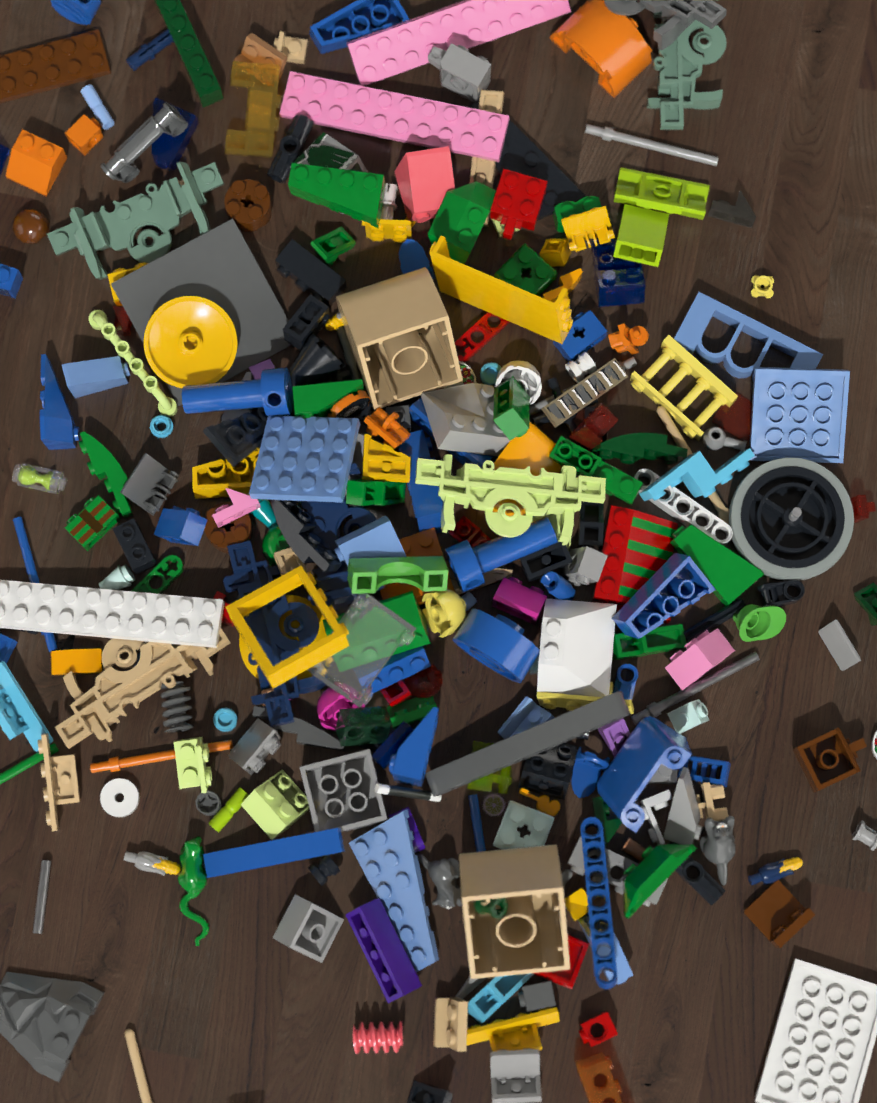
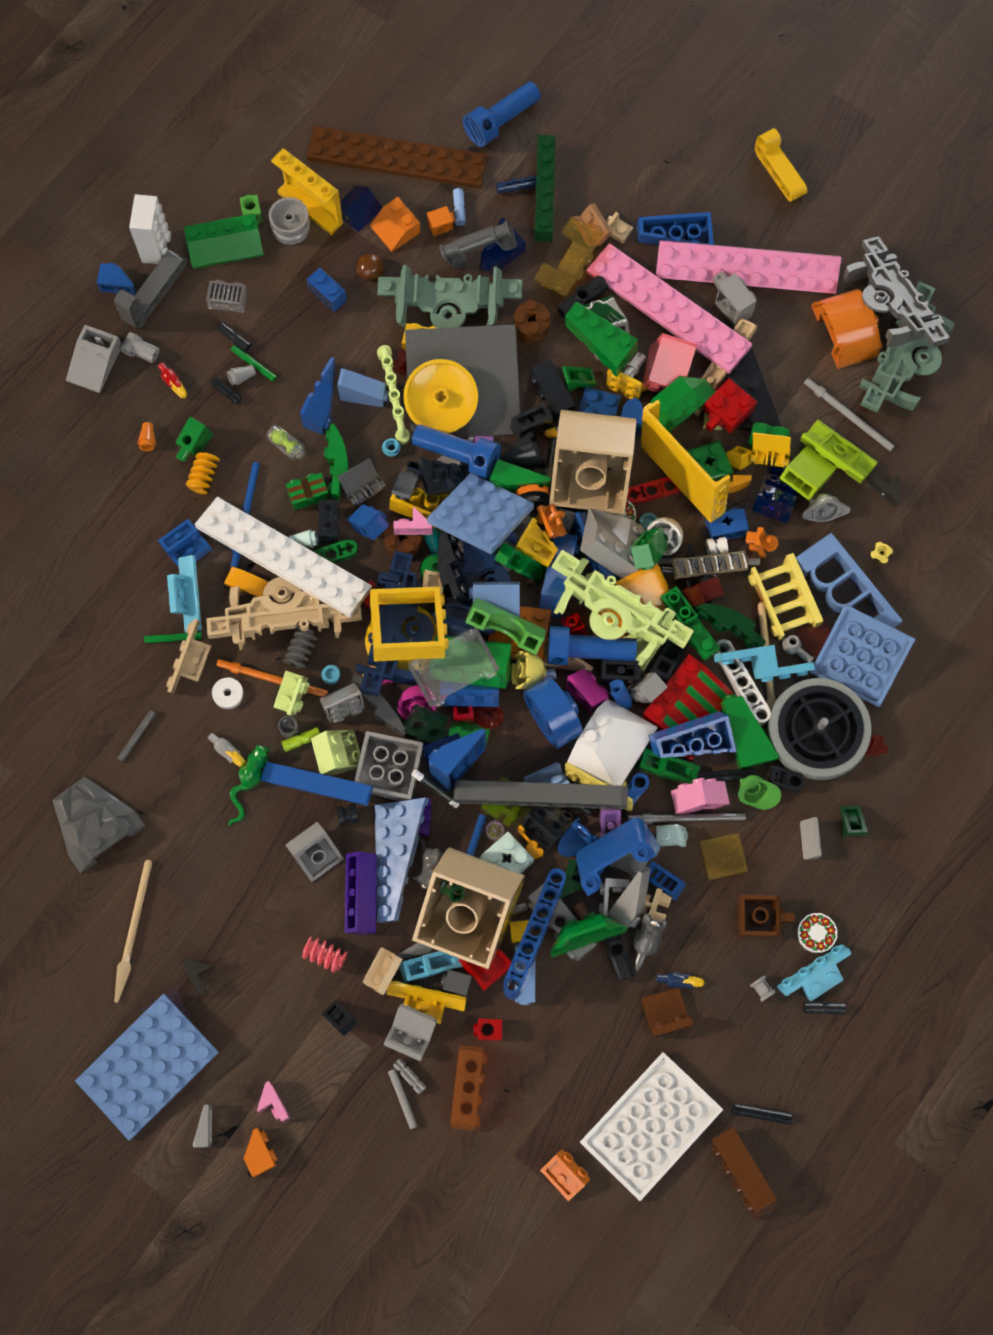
camera: 25 degrees right, 5 degrees down
(204, 460) = (407, 481): none -> black slope
(370, 265) = (599, 402): none -> blue plate
(678, 265) = (825, 508): none -> light grey hat
(755, 711) = (723, 856): none -> clear yellow plate

